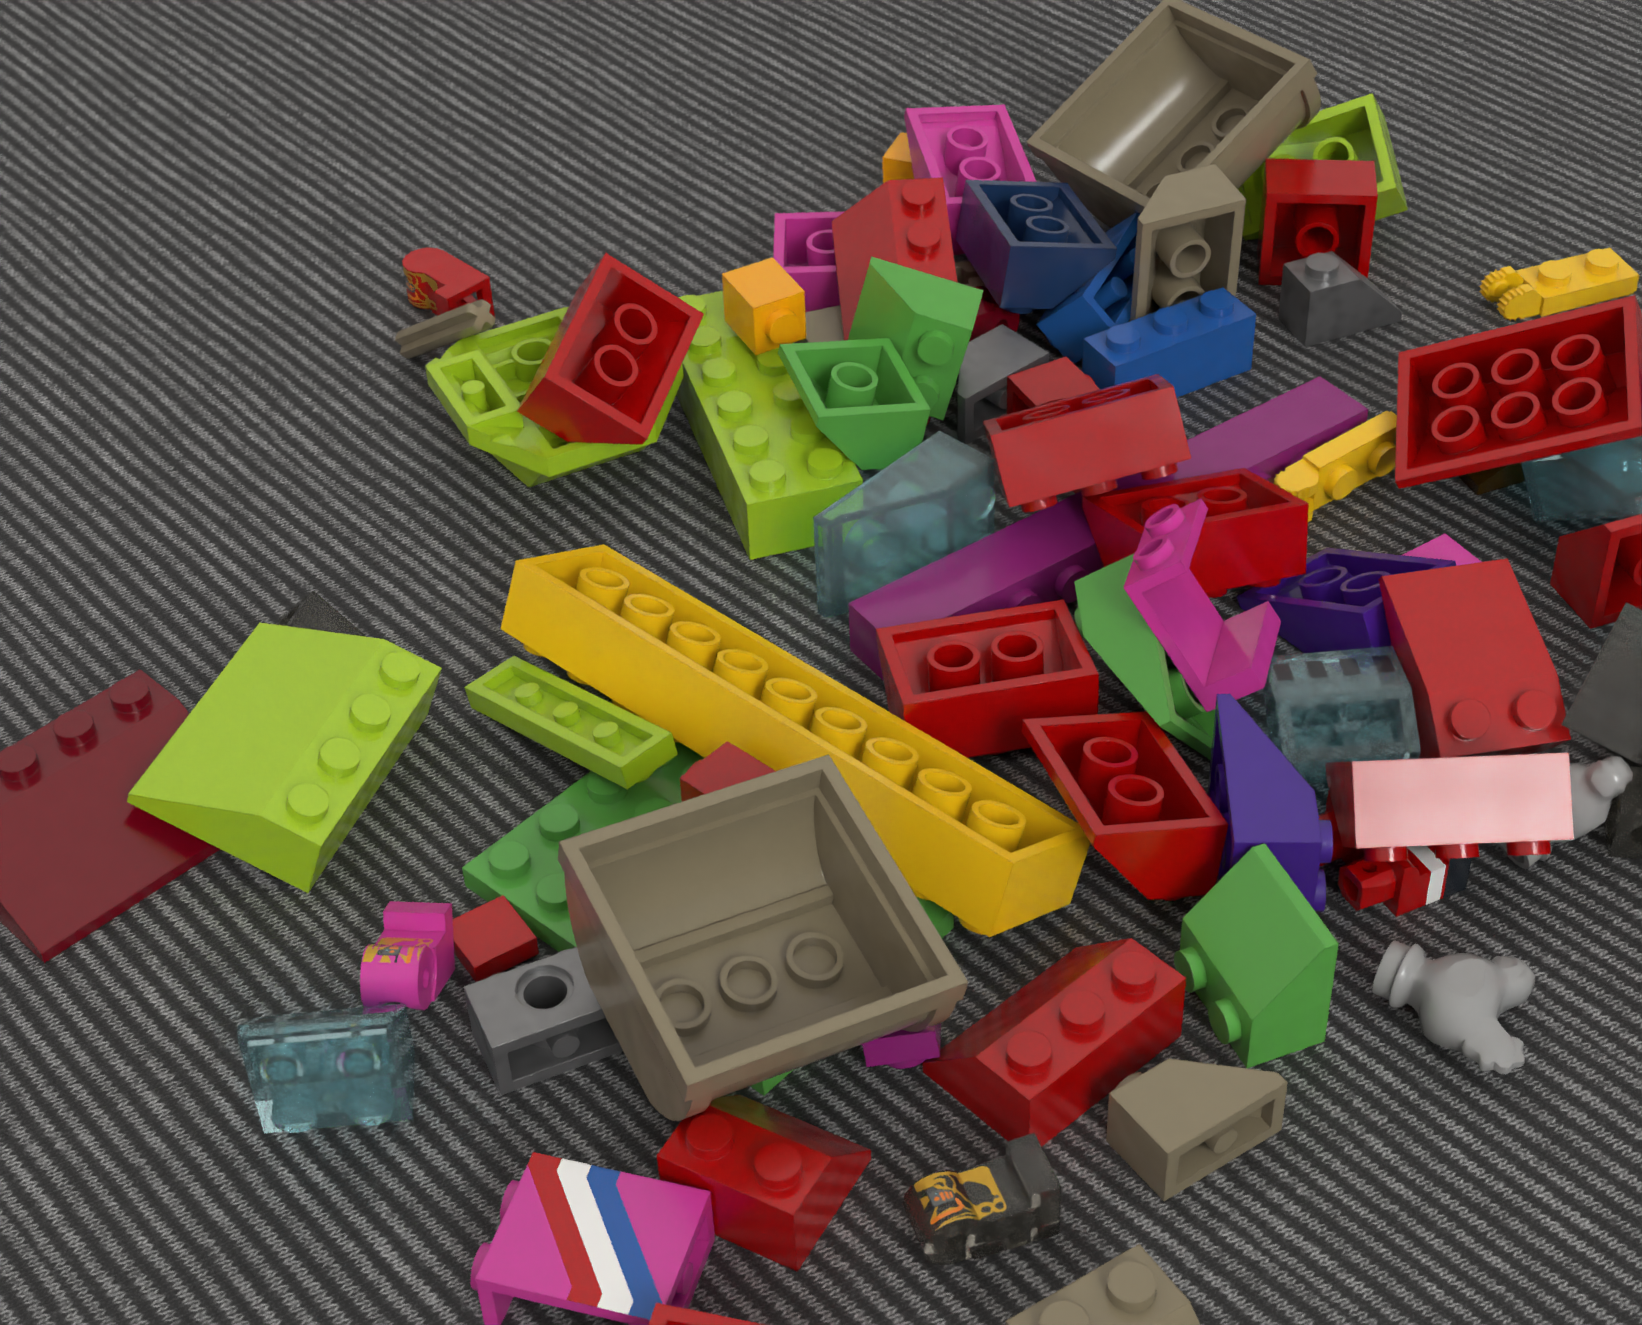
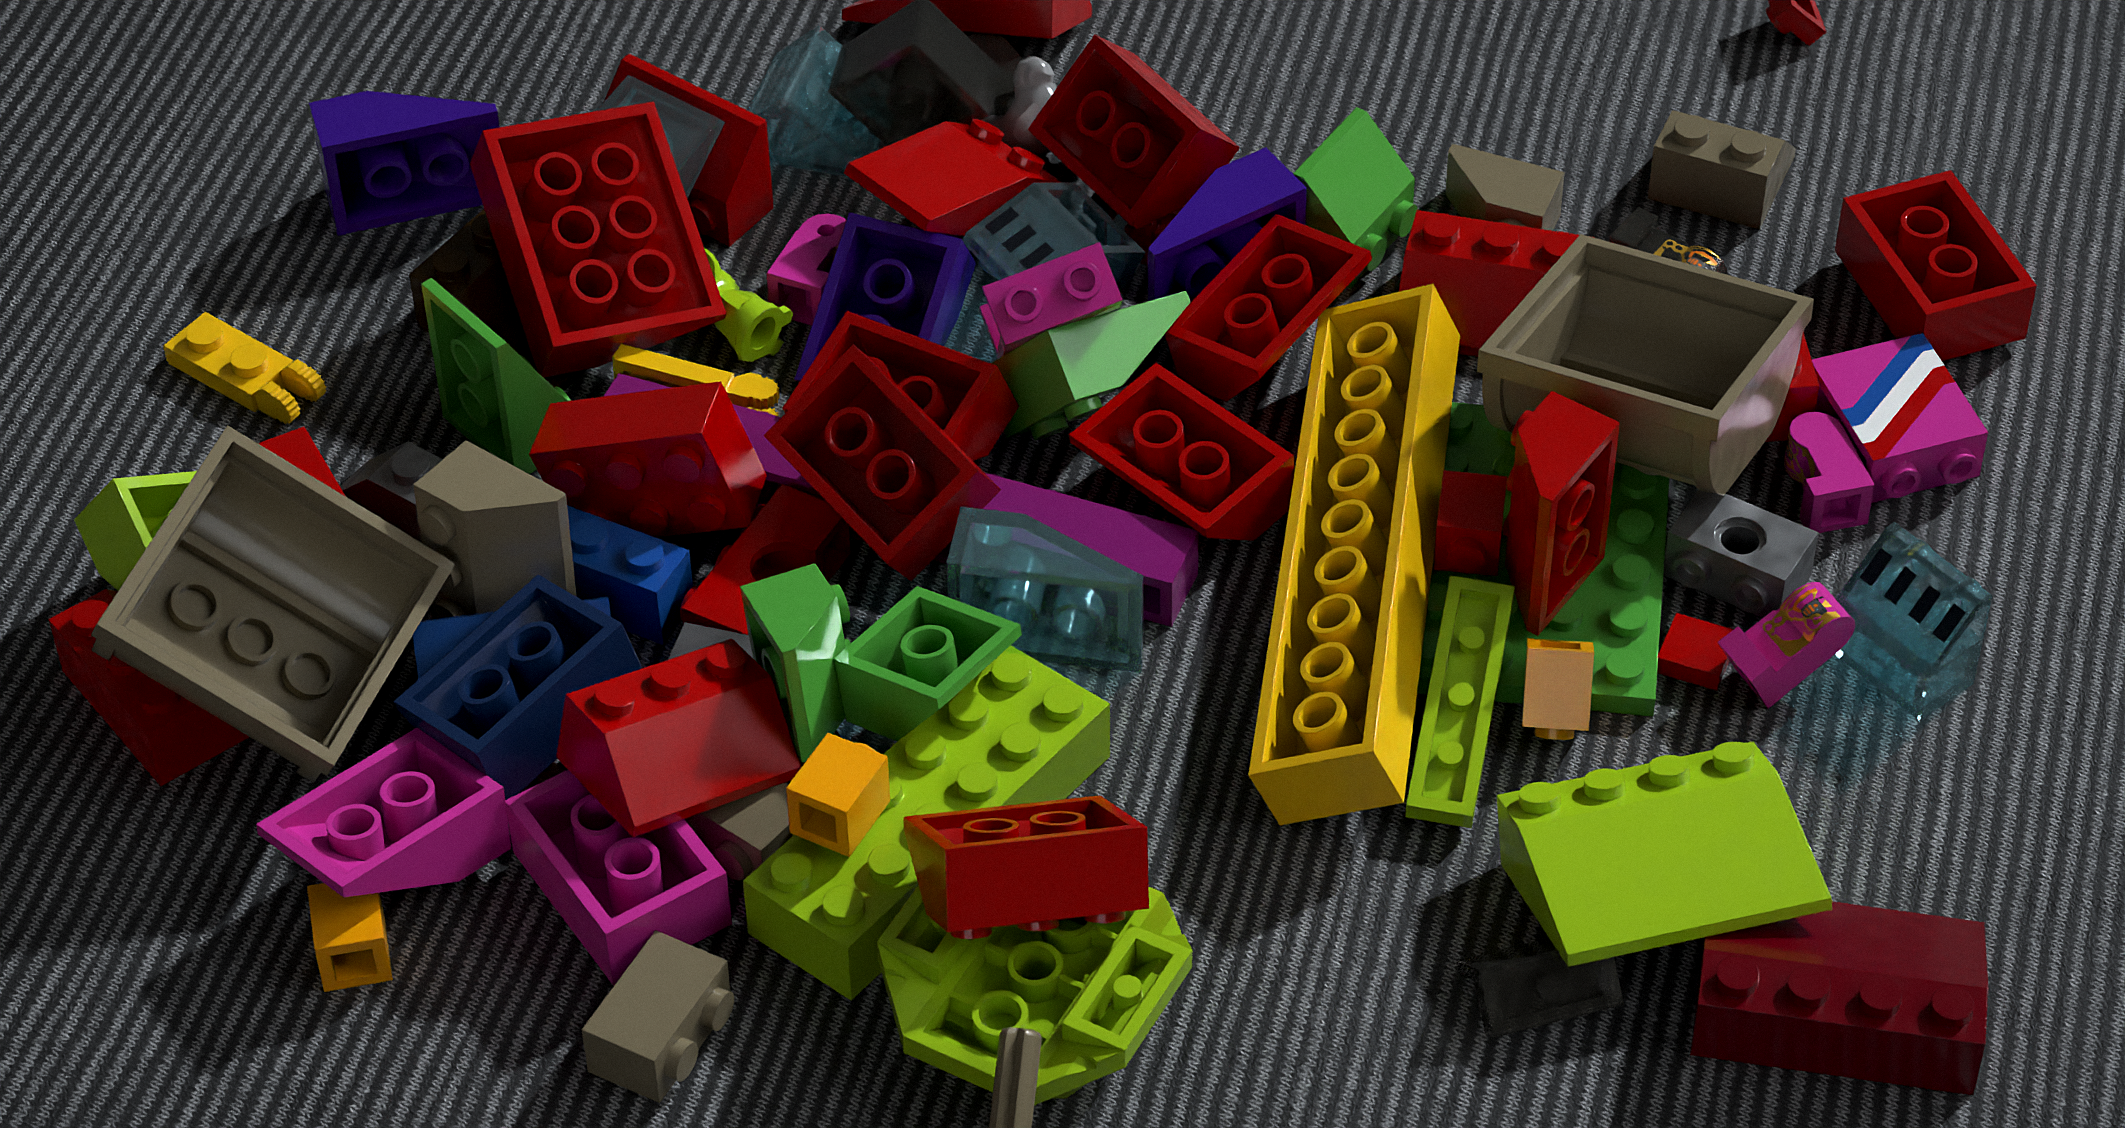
camera: 125 degrees left, 5 degrees up
(522, 783) = (1557, 687): none -> light orange brick
(557, 1131) = (1831, 473): none -> dark pink leg
(639, 744) = (1557, 503): none -> red slope
(710, 245) = (658, 1017): none -> dark tan brick
(1224, 352) = (653, 459): none -> red brick
(1389, 300) = (484, 382): none -> bright green slope
(1413, 518) = (750, 321): none -> lime animal
(1459, 1000) = (1277, 118): light grey animal -> none

